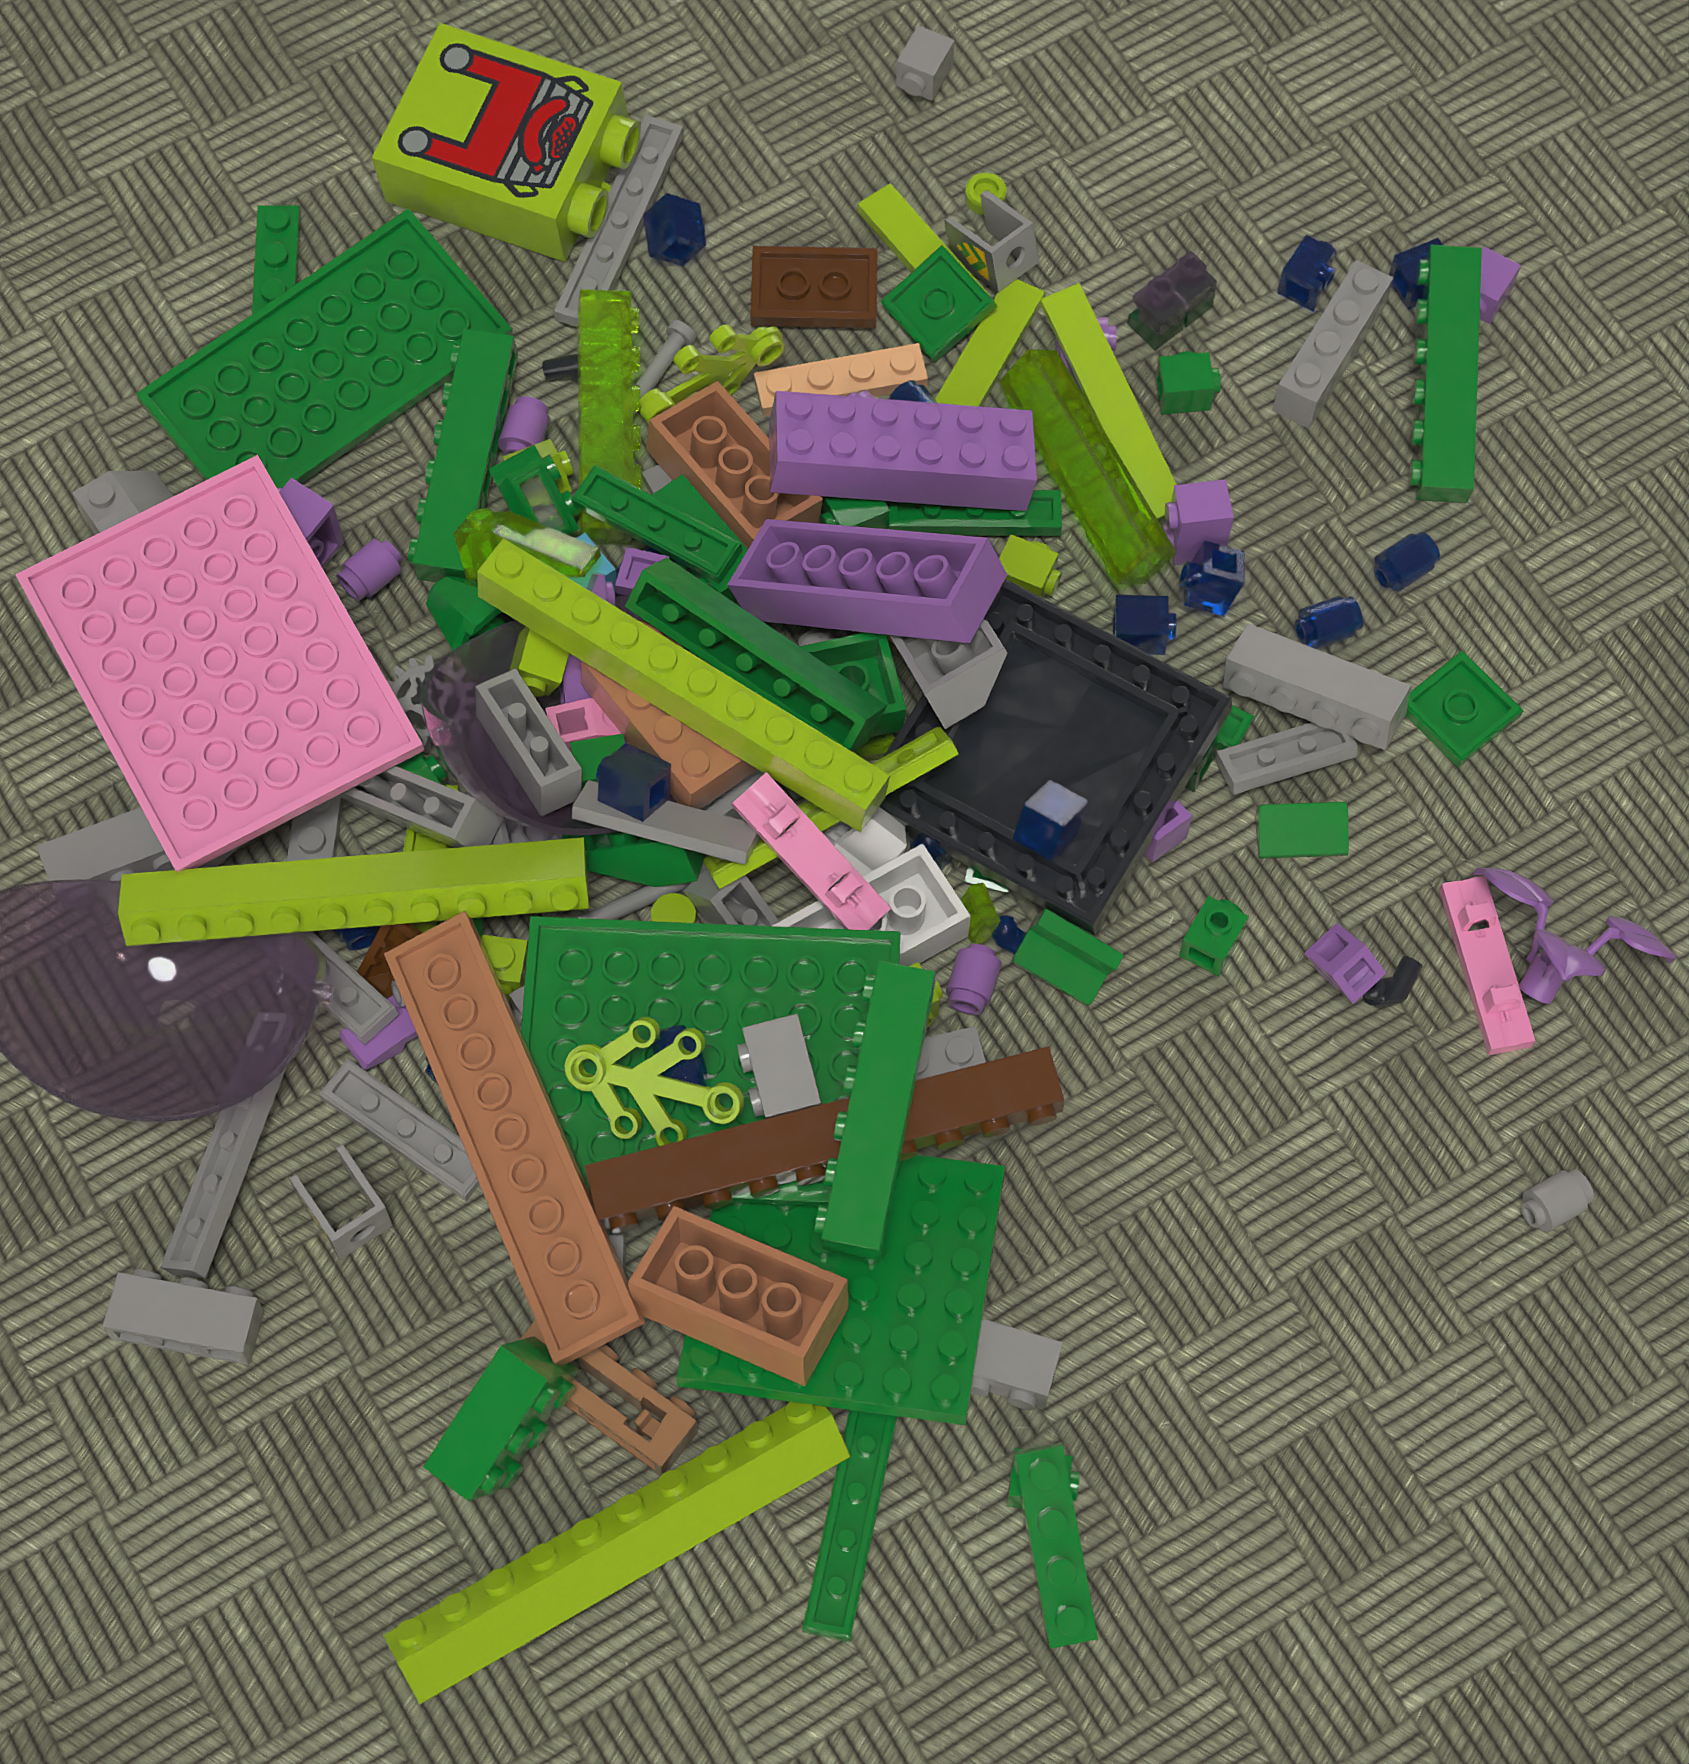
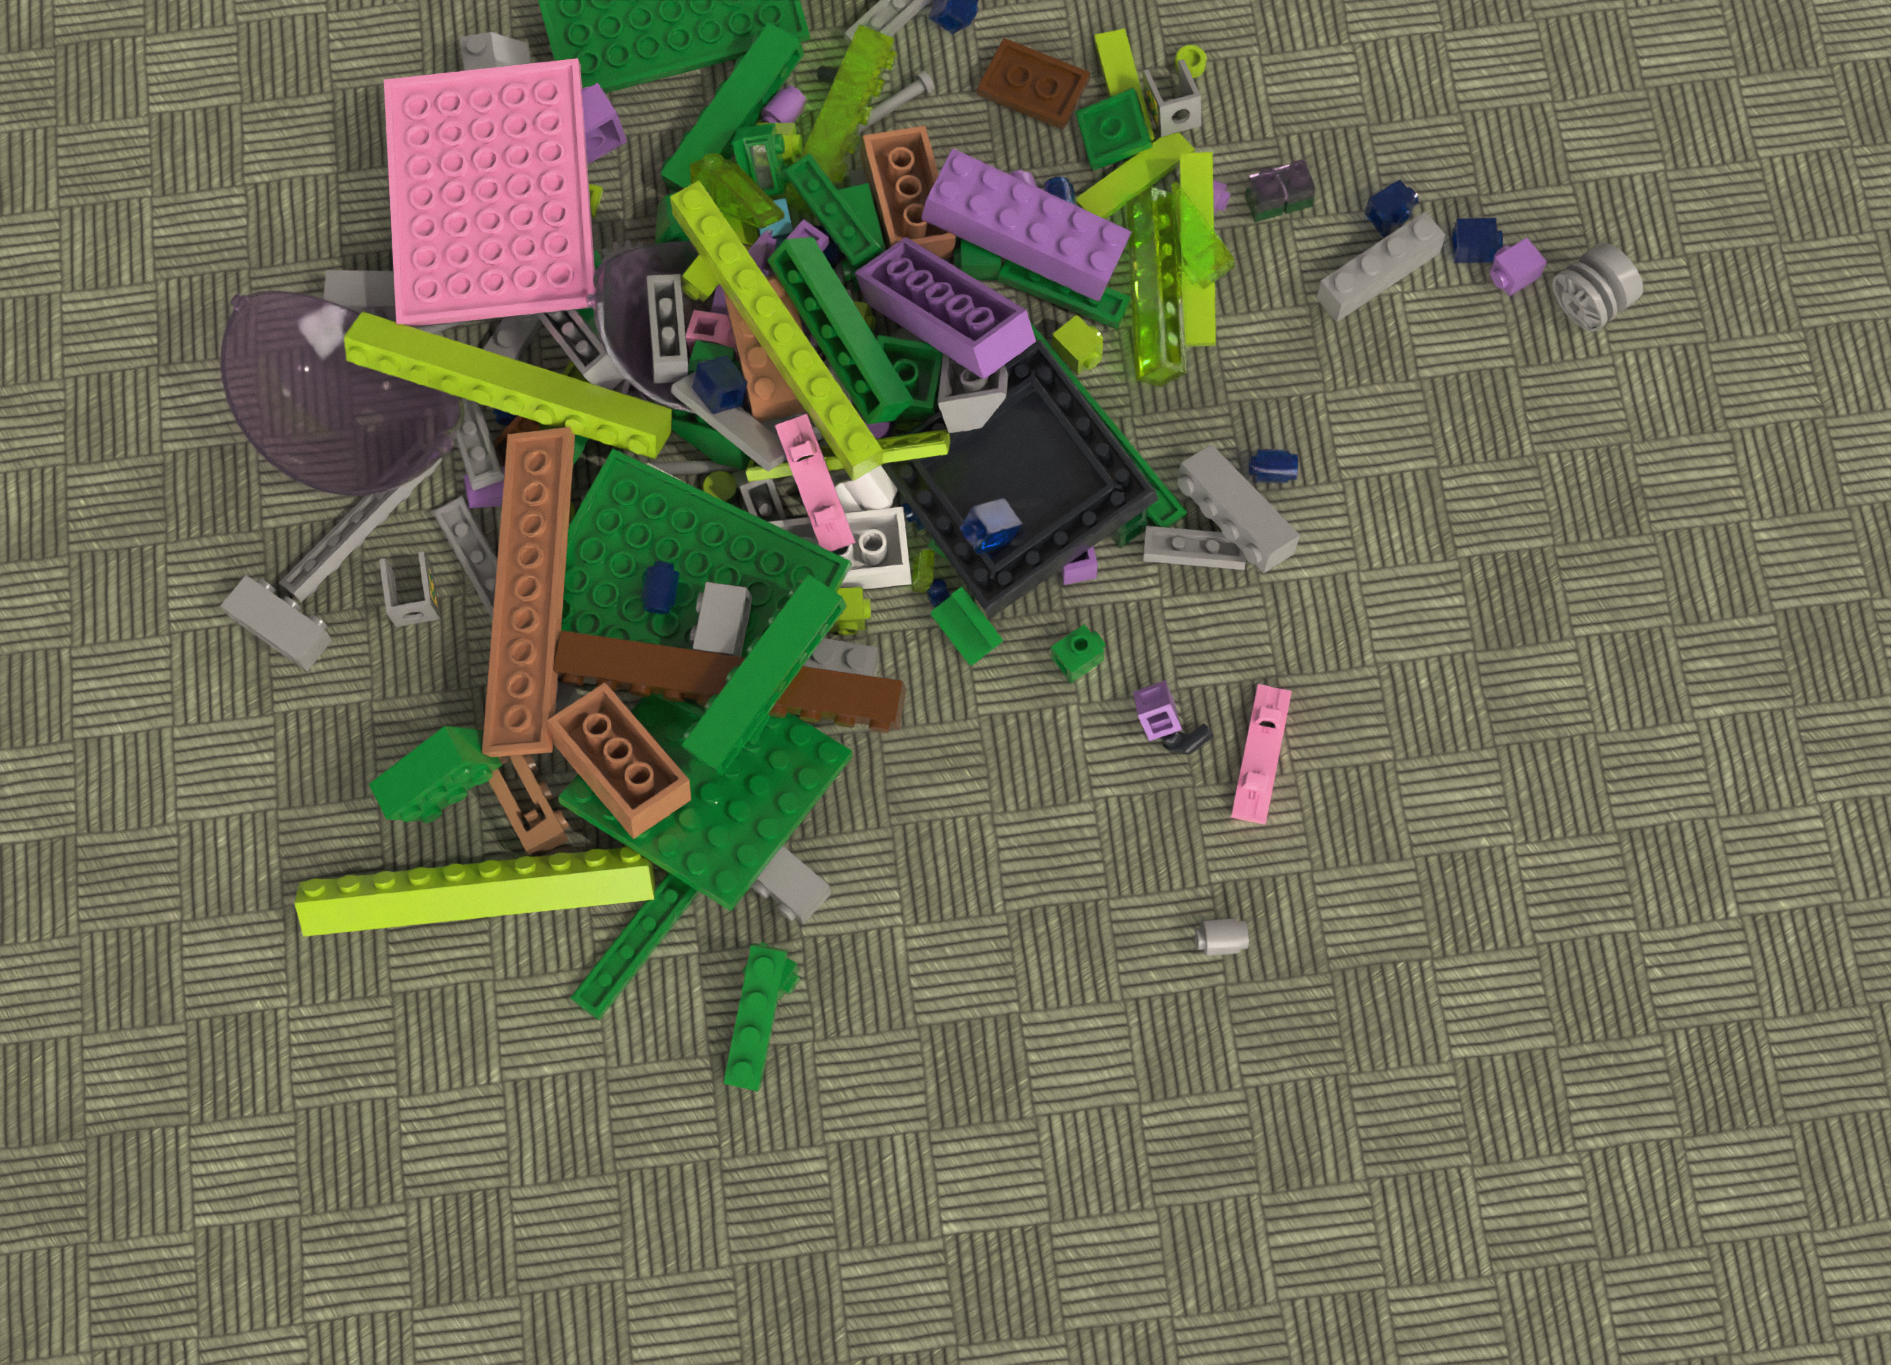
camera: 30 degrees right, 5 degrees up
(369, 569) = (633, 167): medium lavender brick -> none
(508, 960) = (584, 472): lime brick -> none
(646, 1082) = (627, 593): lime plant -> none
(758, 348) = (966, 114): lime plant -> none
(872, 371) = (1013, 155): light nougat plate -> none
(973, 979) = (897, 614): medium lavender brick -> none
(1119, 396) = (1202, 250): none -> clear neon green slope
(1144, 622) = (1140, 415): clear blue brick -> none
(1186, 382) = (1261, 254): green brick -> none
(1197, 514) = (1212, 357): medium lavender brick -> none
(1213, 578) = (1204, 401): clear blue brick -> none
(1302, 830) = (1179, 606): green slope -> none
(1406, 561) = (1352, 445): clear blue brick -> none
(1447, 374) = (1449, 320): green brick -> none
(1461, 709) = (1338, 566): green tile -> none
(1560, 959) = (1301, 773): medium lavender plant -> none
(1592, 271) = (1597, 286): none -> light grey wheel

